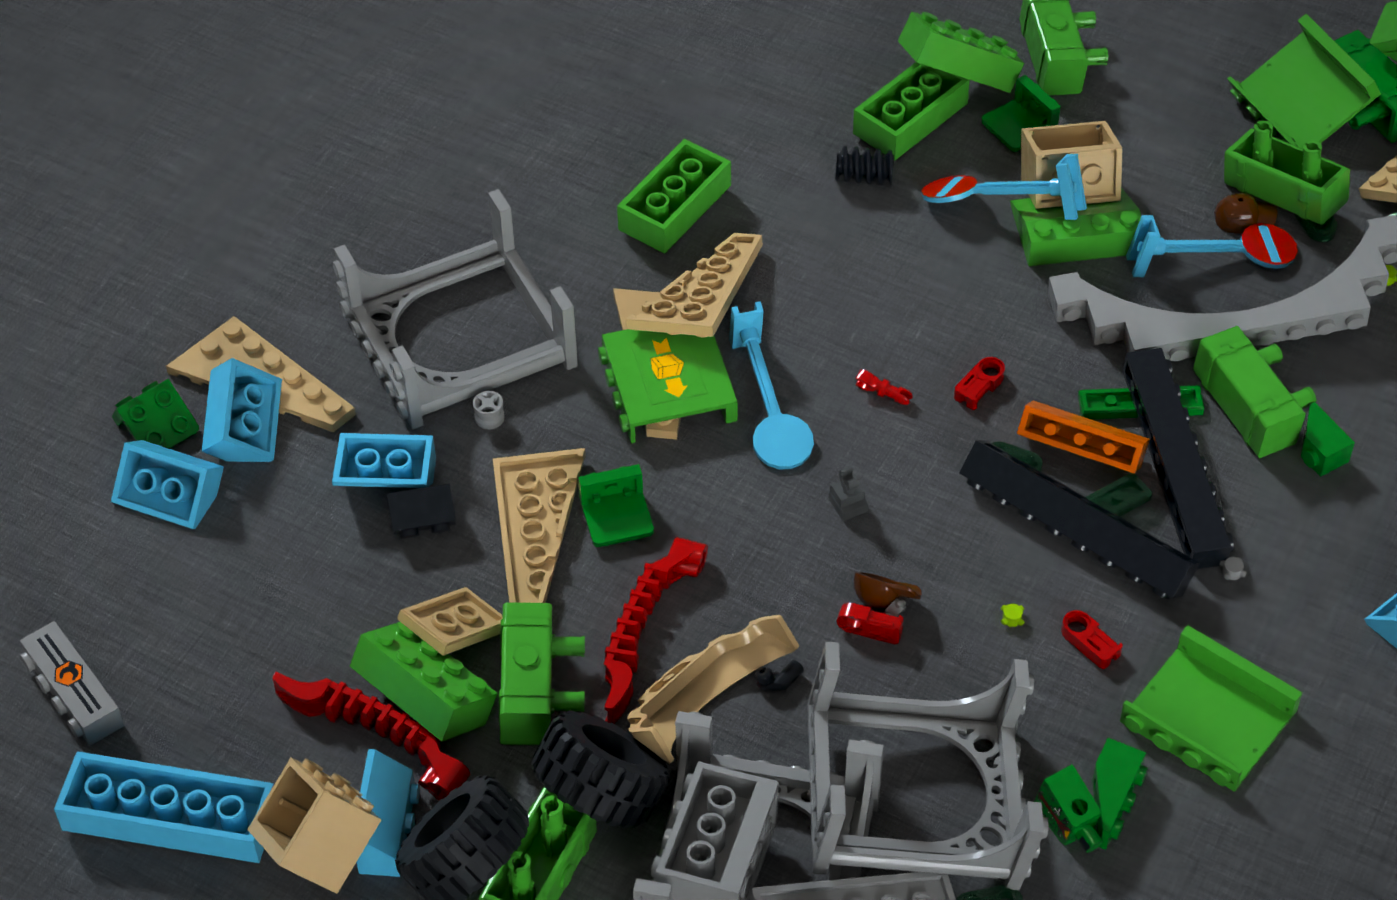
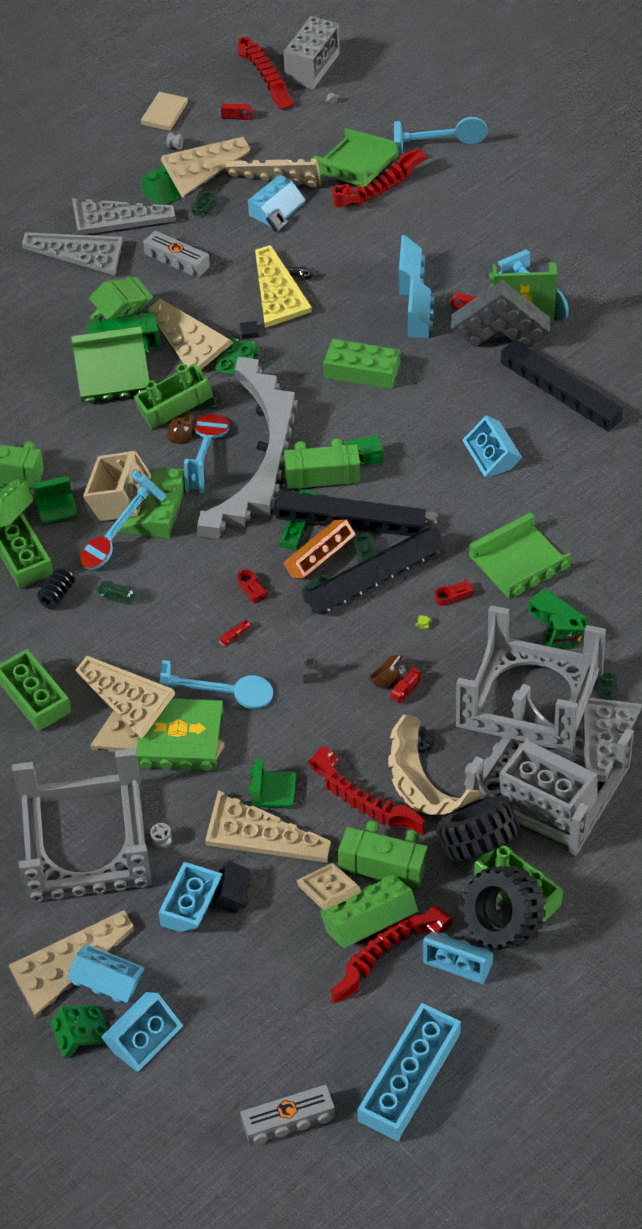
camera: 70 degrees left, 0 degrees up
(314, 824) = (472, 975): tan container -> none
(891, 241) = (116, 592): none -> clear green plate

